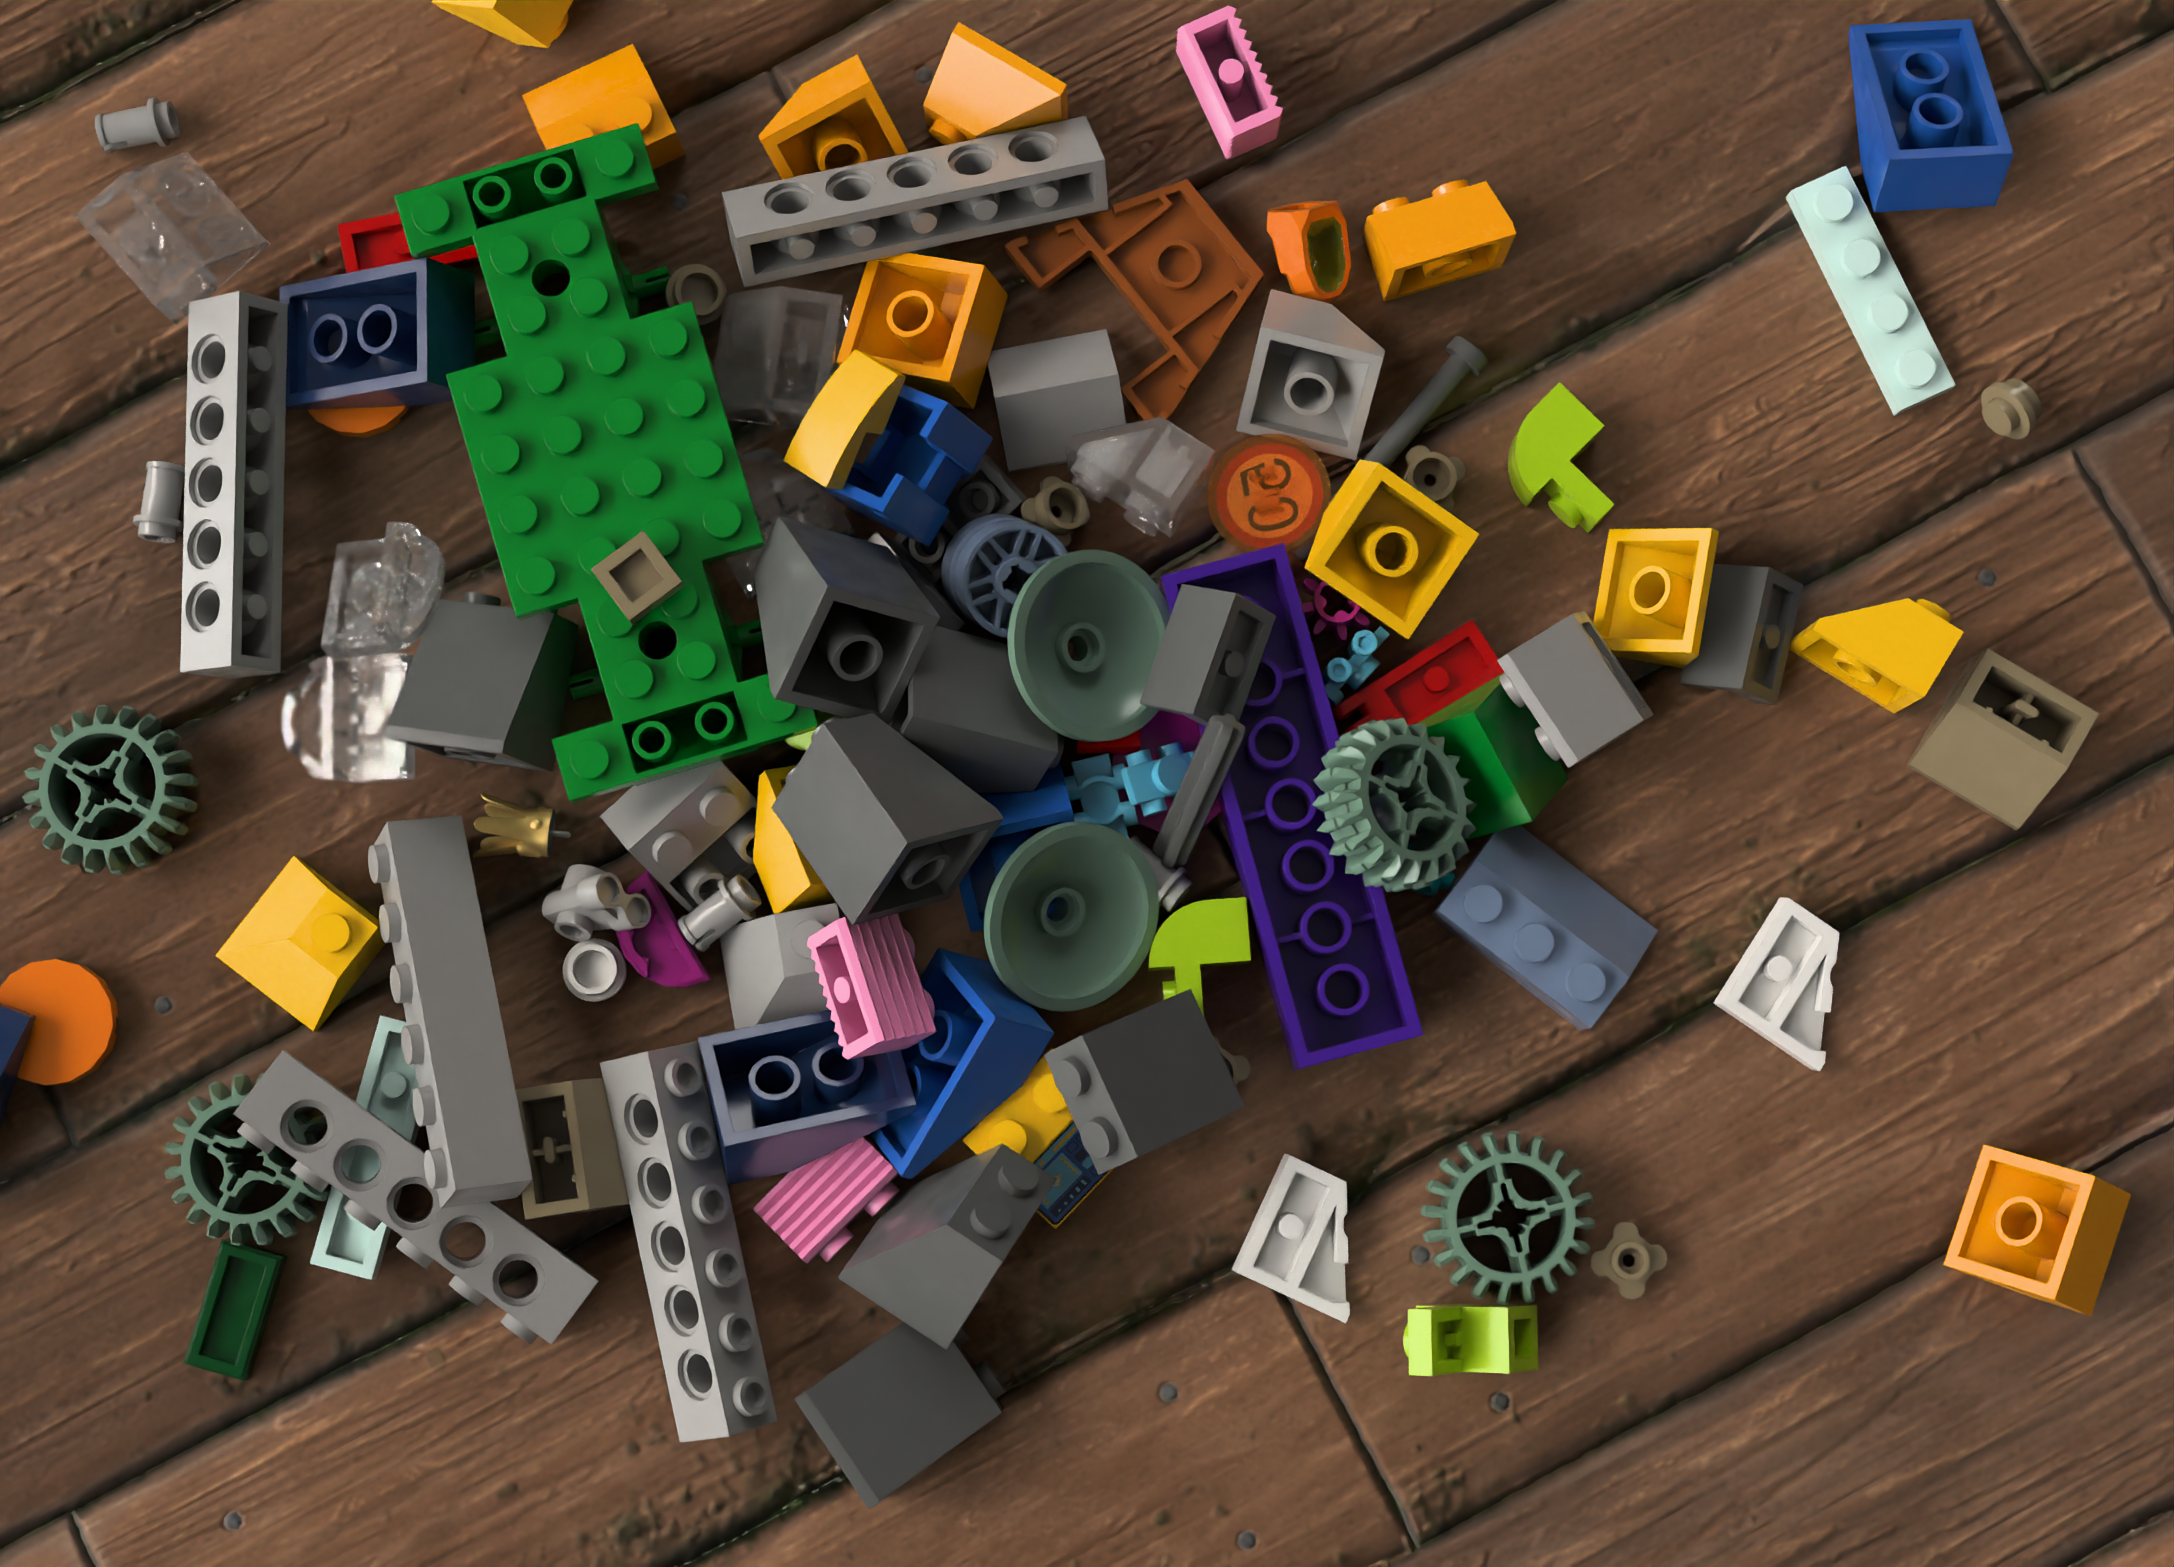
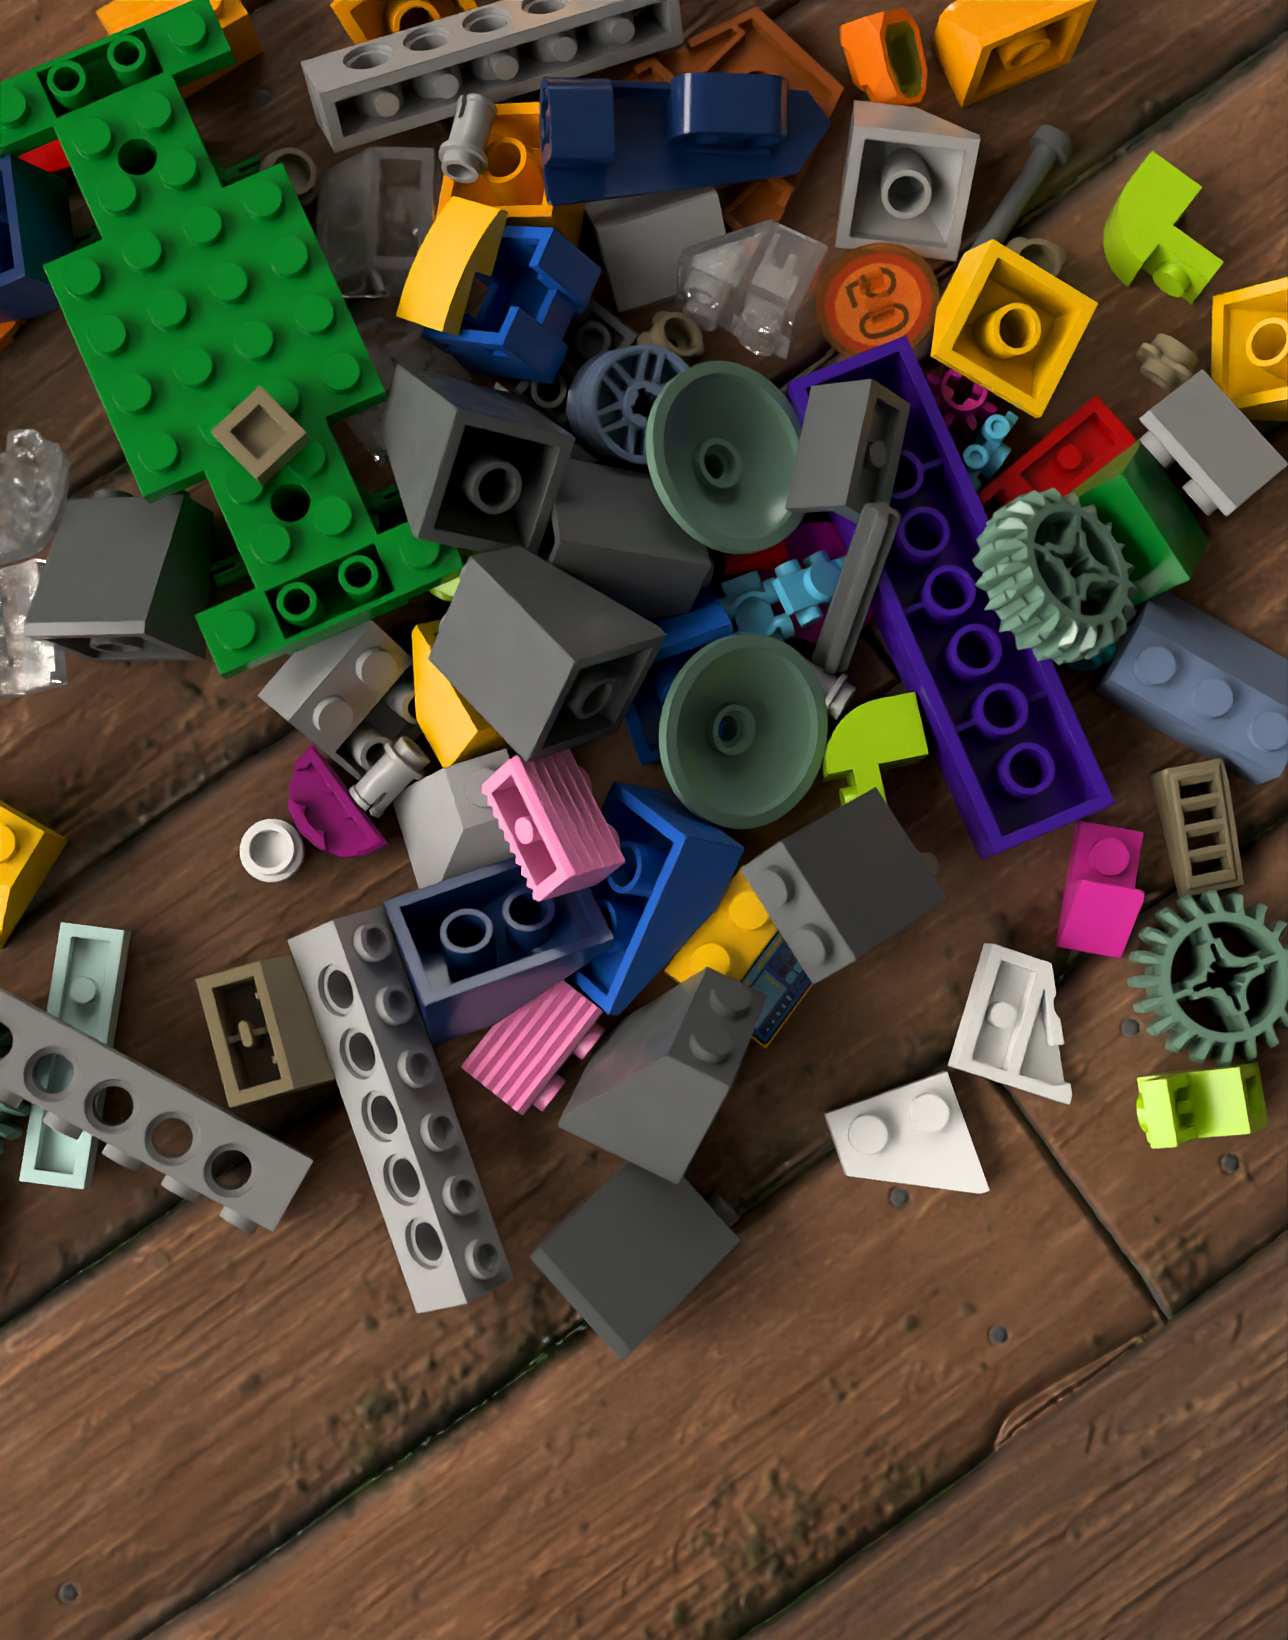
camera: 10 degrees left, 0 degrees up
(450, 1012) = (128, 910): light grey brick -> none
(519, 829) = (192, 718): pearl gold piece -> none
(593, 902) = (262, 781): light grey plate -> none
(878, 290) = (464, 152): none -> light grey pin
(1076, 314) = (669, 137): none -> dark blue panel
(1184, 1335) = (909, 1137): none -> white wing
(1407, 1115) = (1100, 890): none -> dark pink slope
(1534, 1014) = (1219, 803): none -> dark tan slope
(1548, 594) = (1166, 361): none -> dark tan plate

